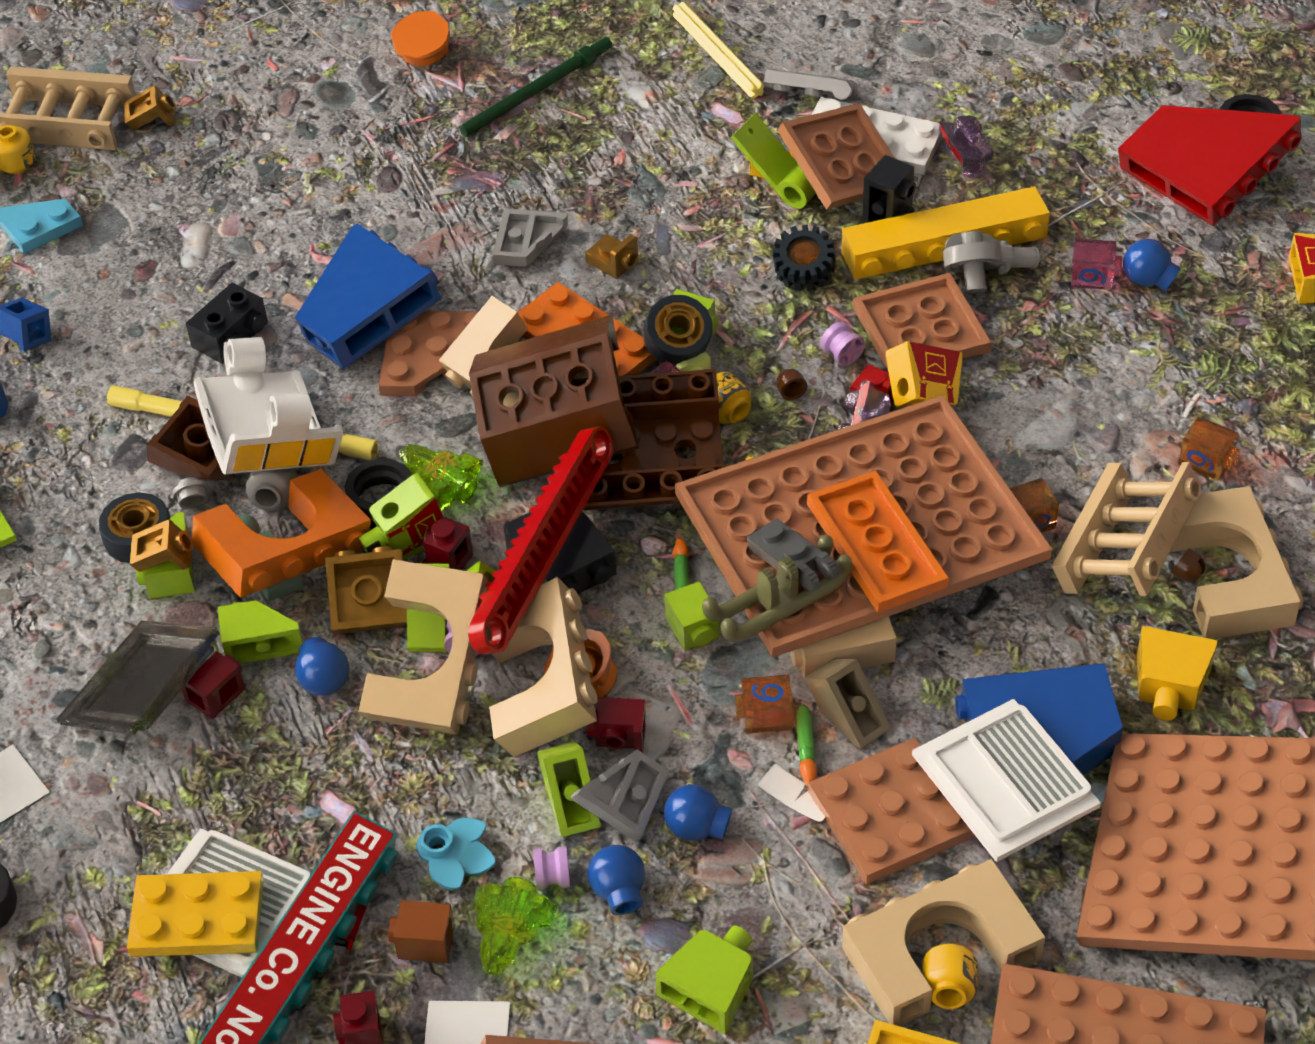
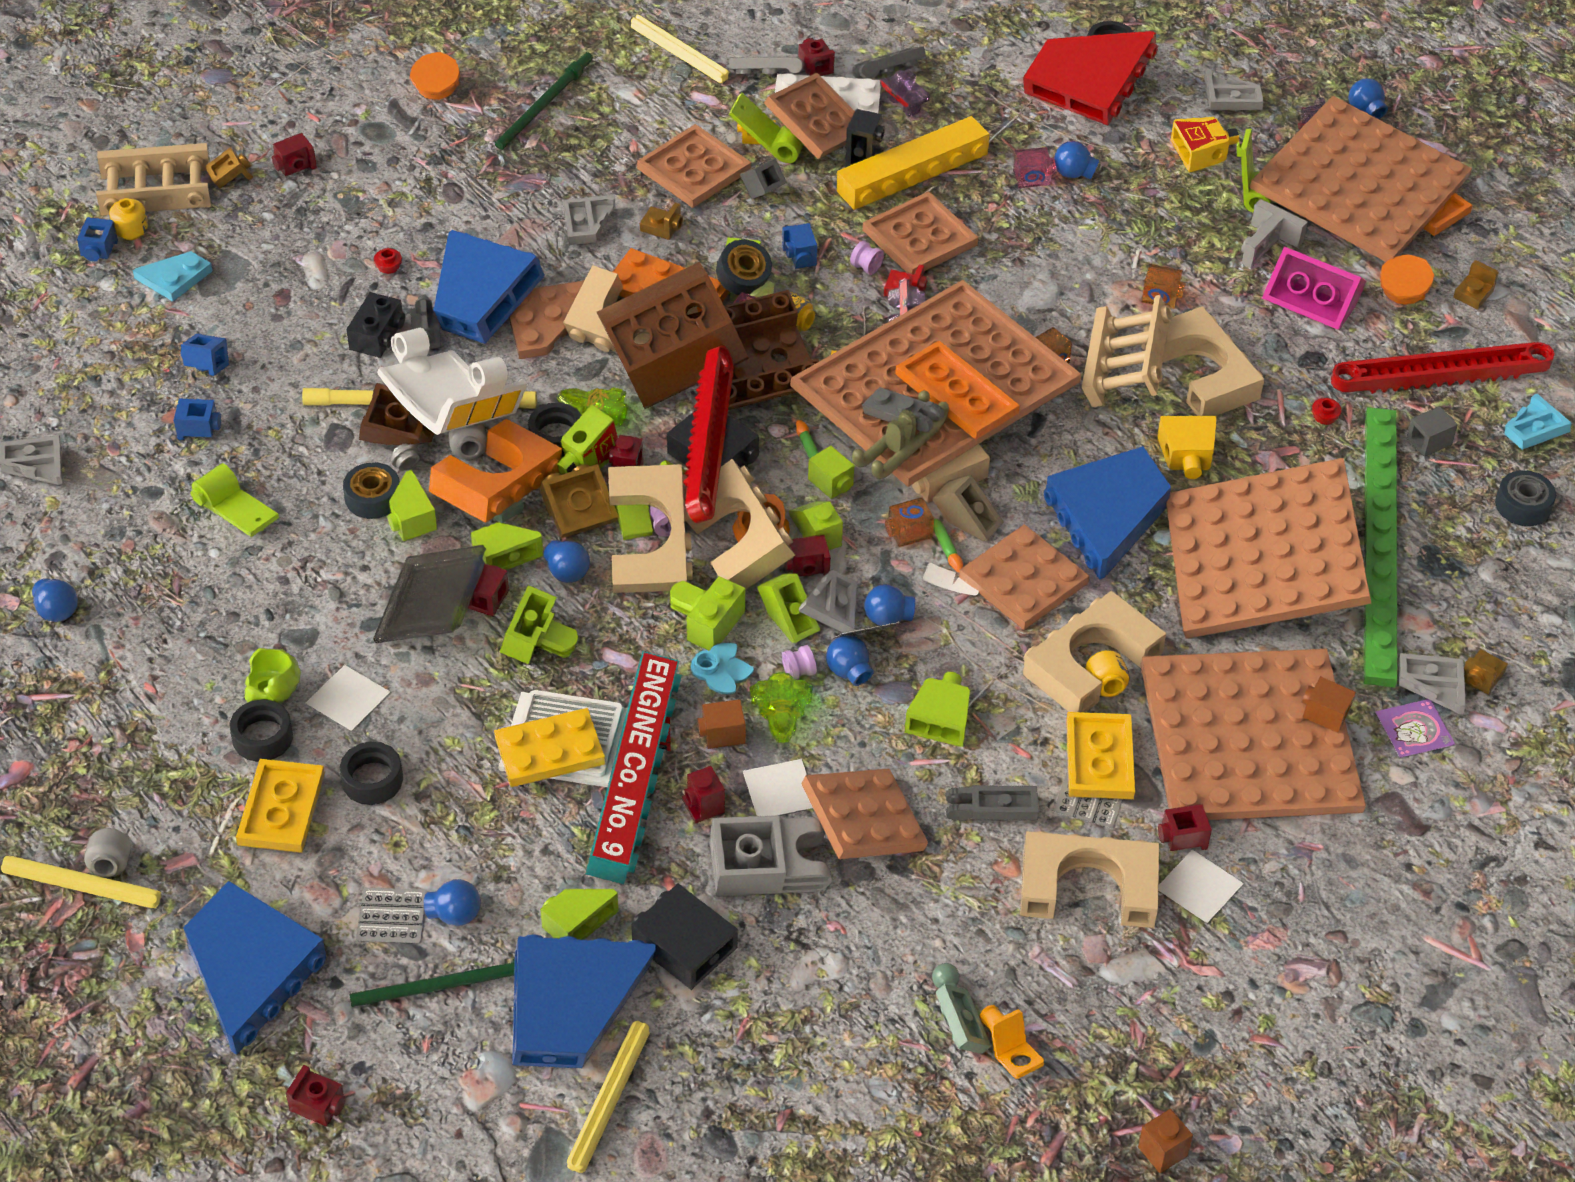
camera: 20 degrees left, 0 degrees up
(159, 545) = (409, 495): pearl gold bracket -> none
(224, 105) = (293, 155): none -> dark red brick
(243, 746) = (535, 627): none -> lime brick
(278, 247) = (388, 260): none -> red plate
(285, 334) = (425, 317): none -> dark grey hinge
(465, 773) = (709, 612): none -> lime brick
(648, 843) = (866, 630): none -> light grey sticker
(650, 681) = (819, 519): none -> lime slope
(678, 193) = (693, 165): none -> nougat plate
(750, 222) = (763, 178): none -> dark grey brick
(765, 313) = (800, 245): none -> blue brick
(791, 384) = (839, 294): reddish brown hinge -> none
(804, 257) = (813, 198): black wheel -> none
(875, 76) = (813, 51): none -> dark red brick
(923, 373) = (939, 267): yellow torso -> none
(958, 104) = (887, 62): none -> dark grey hinge
(977, 252) = (946, 172): light grey pin -> none
(1007, 779) = (1103, 535): white piece -> none
(1190, 566) = (1176, 371): reddish brown hinge -> none

